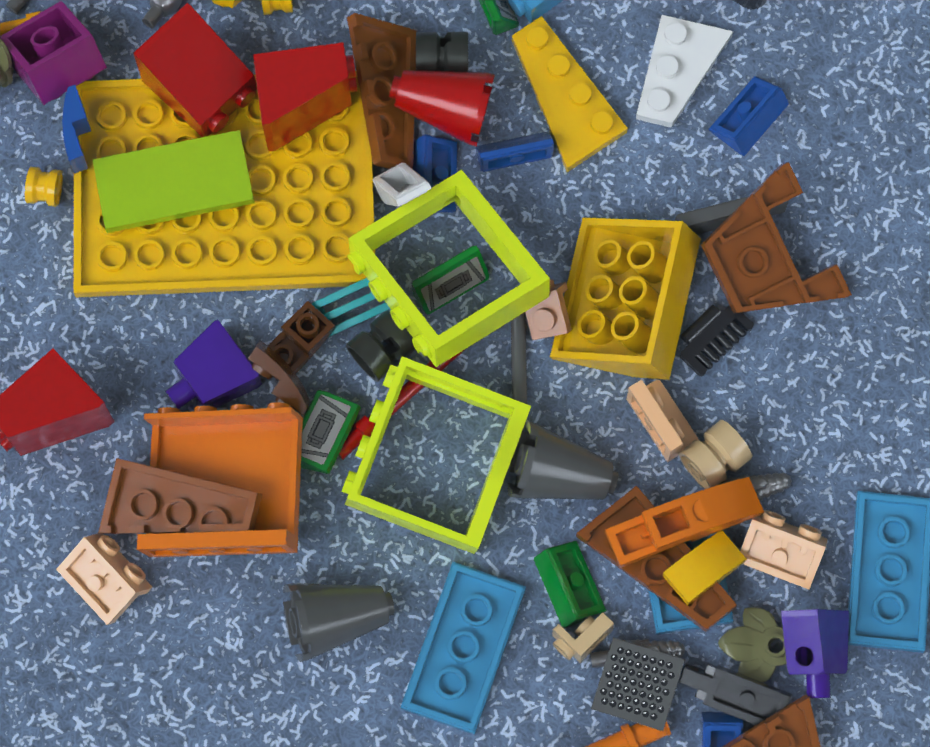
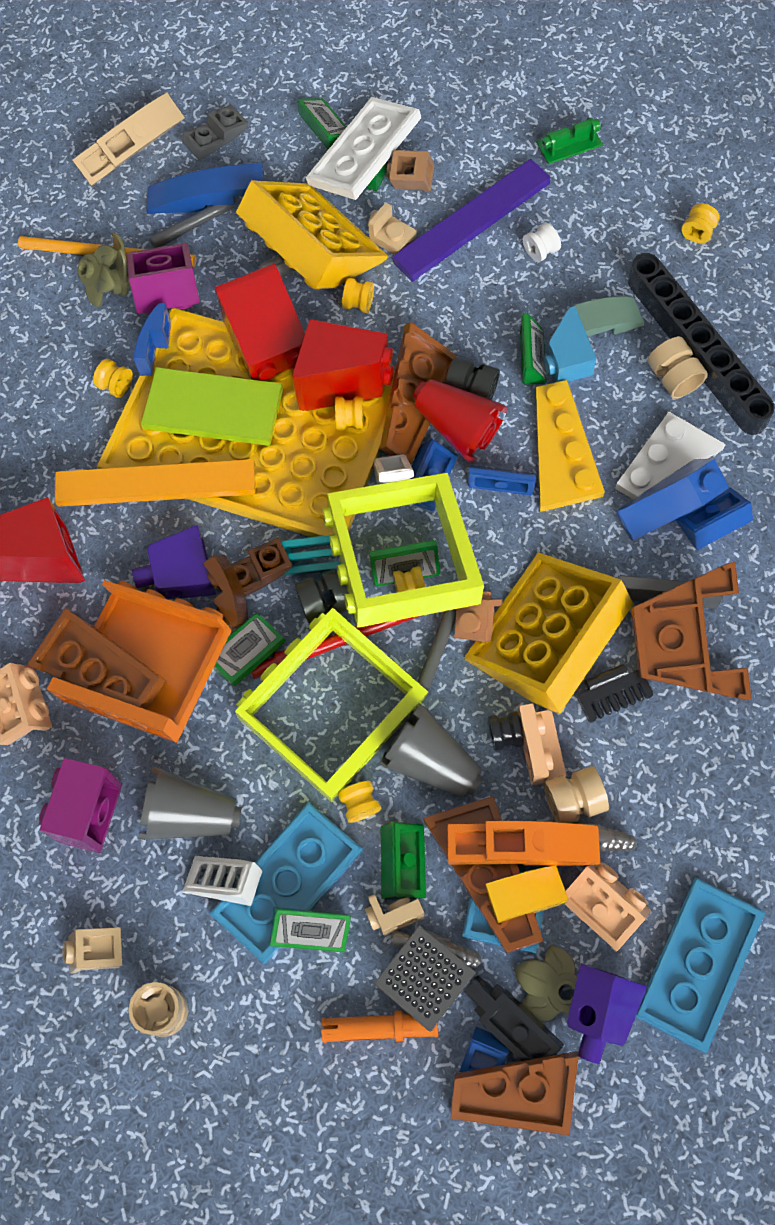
camera: 25 degrees right, 5 degrees down
(149, 289) = (155, 482): none -> light orange tile
(229, 651) = (80, 805): none -> magenta brick
(328, 138) = (349, 412): none -> yellow wheel
(426, 676) = (246, 886): none -> white slope
(464, 300) = (408, 580): none -> yellow wheel
(504, 541) = (359, 801): none -> yellow wheel
(507, 683) = (309, 929): none -> slope
(622, 416) = (505, 731): none -> black wheel
(700, 110) = (673, 497): none -> blue slope

